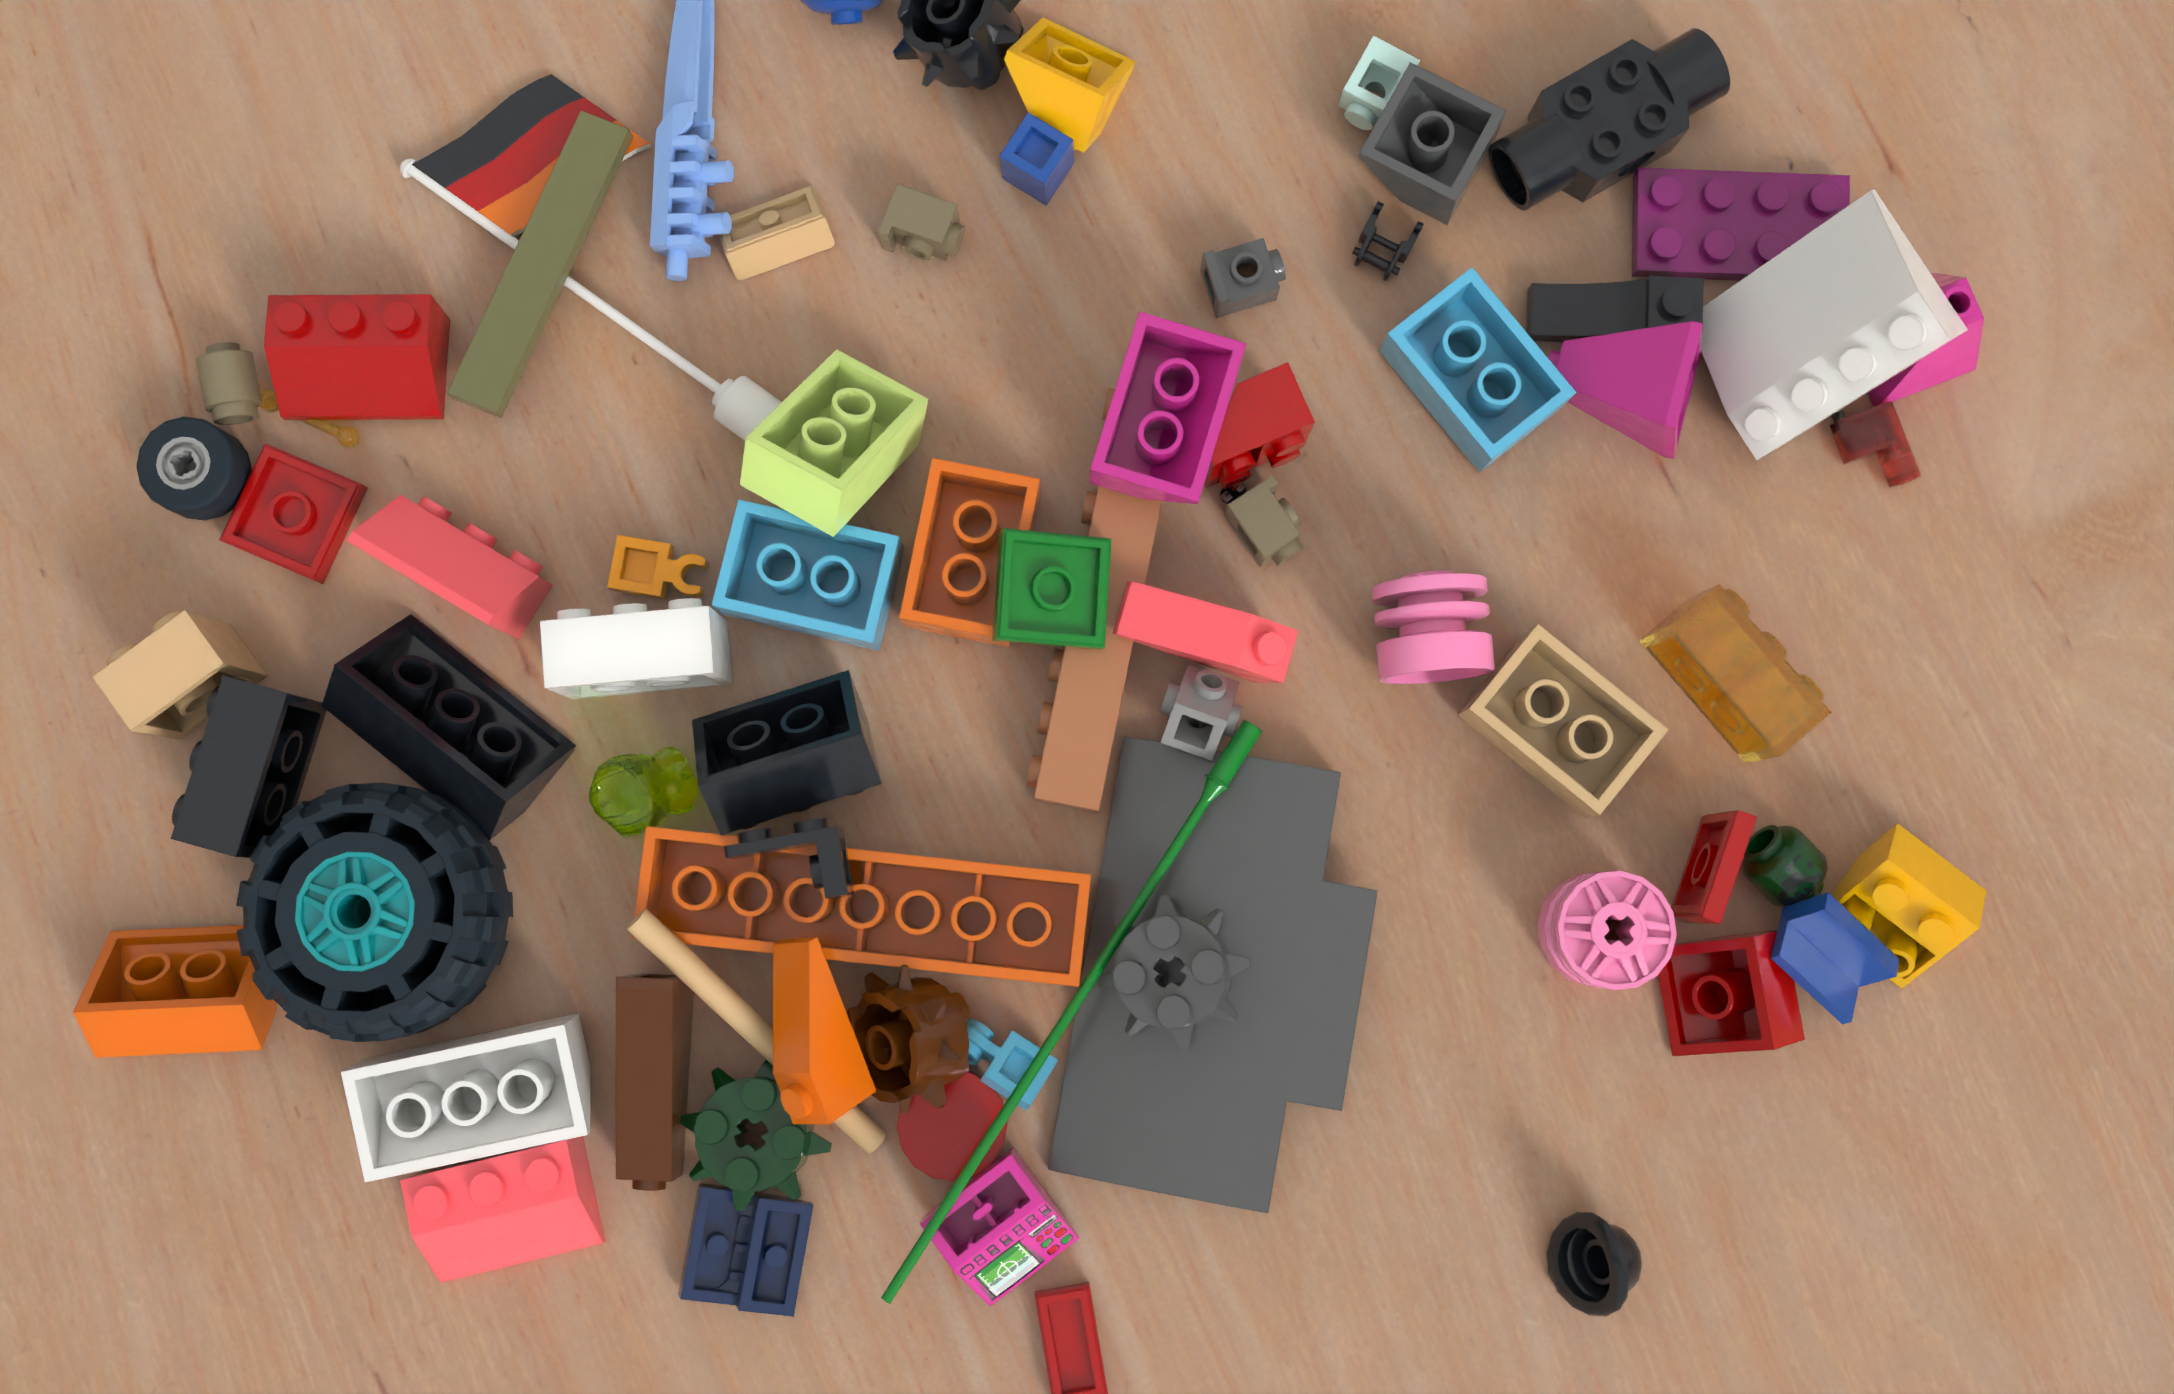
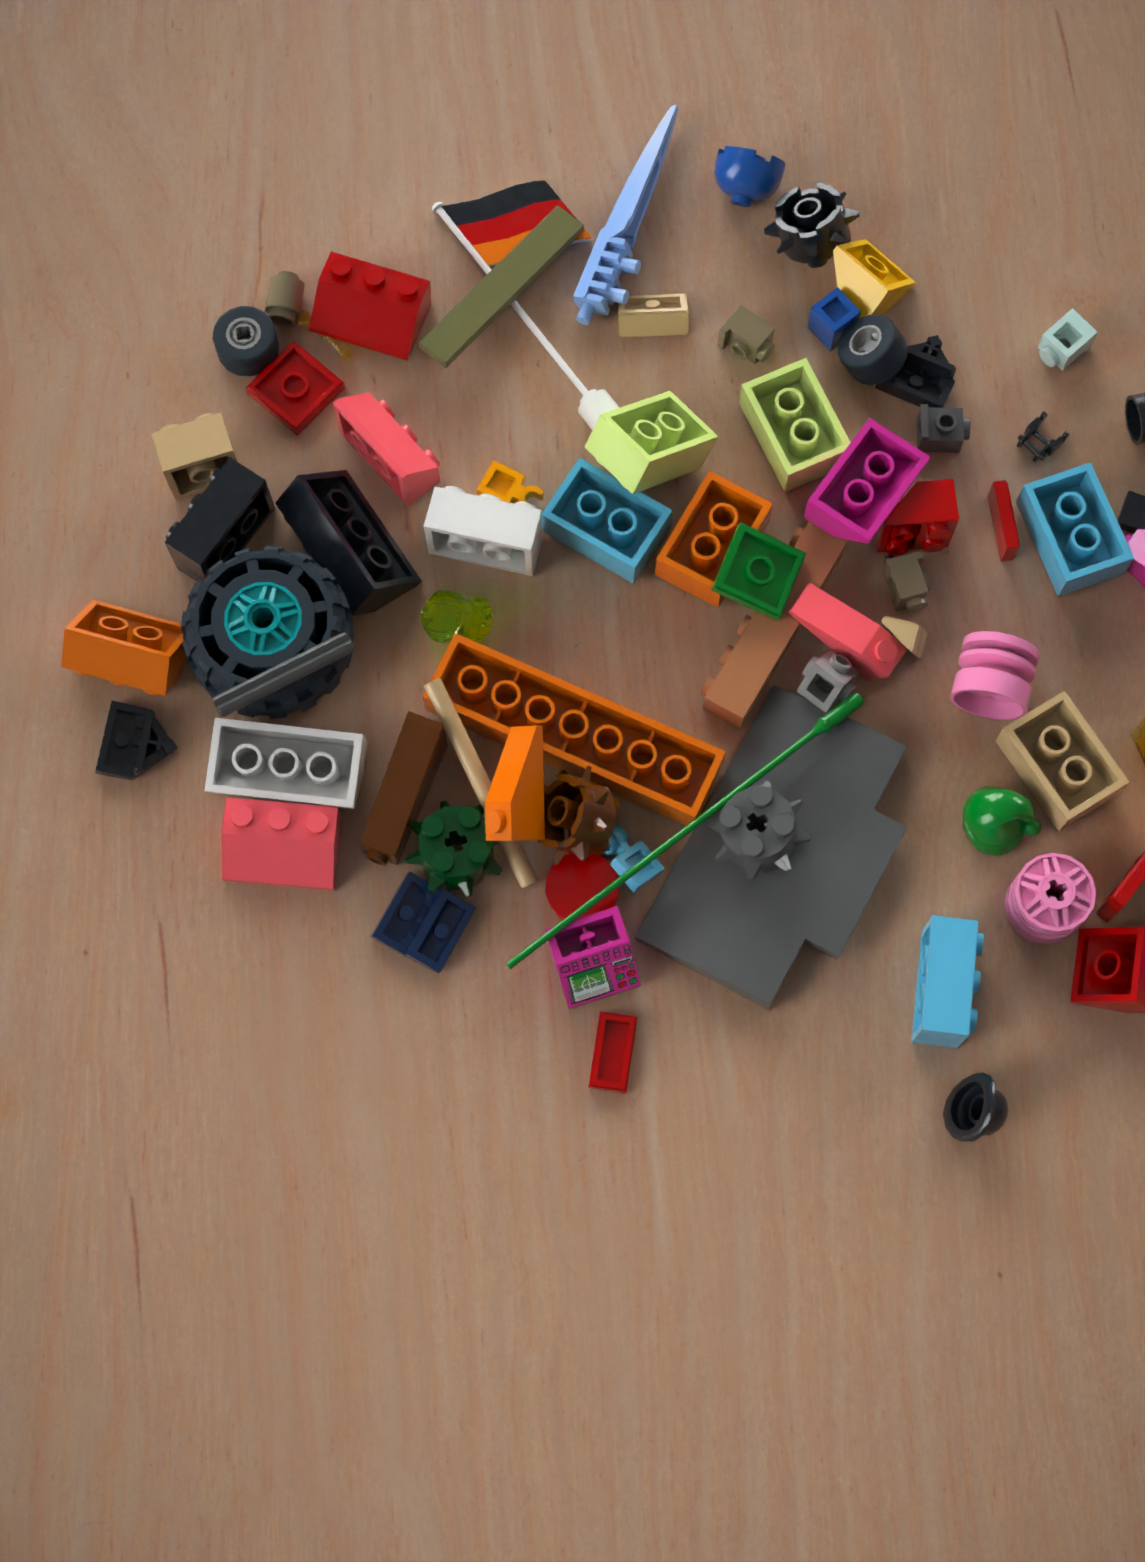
camera: 20 degrees right, 10 degrees down
(240, 1126) = (132, 742): none -> black slope
(412, 992) = (283, 674): none -> dark grey axle
(784, 753) = (556, 619): black brick -> none
(828, 868) = (554, 666): black bracket -> none
(1032, 340) = (794, 423): none -> yellowish green brick
(1107, 189) = (872, 349): none -> black wheel
(1184, 202) = (924, 376): none -> black slope
(1289, 609) = (908, 633): none -> tan slope
(1371, 386) = (1003, 520): none -> red tile
(1431, 142) = (1089, 383): dark grey slope -> none
(1497, 832) = (998, 820): none -> green piece
(1503, 1104) = (947, 981): none -> medium azure brick

